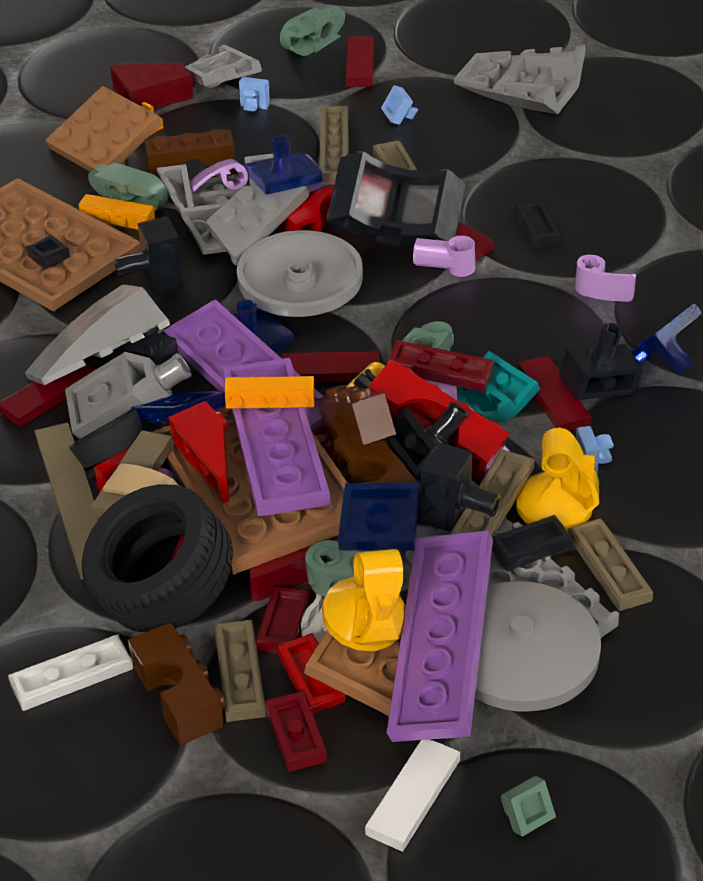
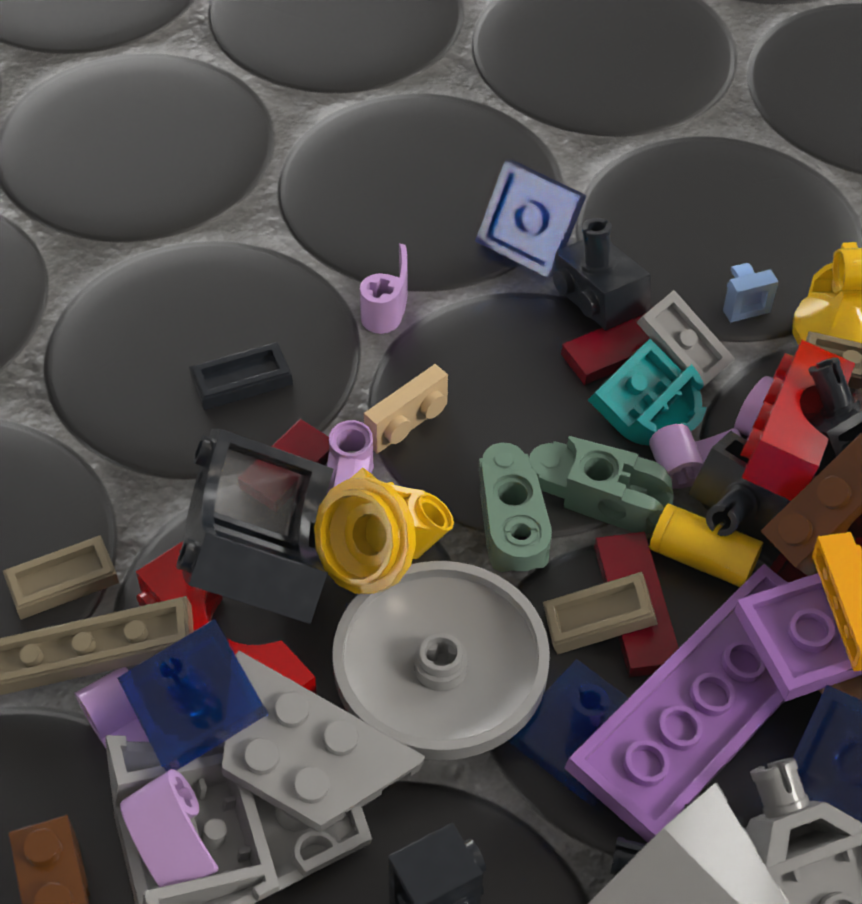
camera: 100 degrees left, 10 degrees up
(321, 343) = (599, 613): none -> dark tan tile
(386, 233) = (374, 530): none -> yellow piece
(396, 314) = (506, 482): none -> sand green piece
(443, 365) = (658, 438): dark red tile -> none
(494, 280) = (407, 408): none -> tan plate
(538, 405) = (685, 337): none -> light grey plate

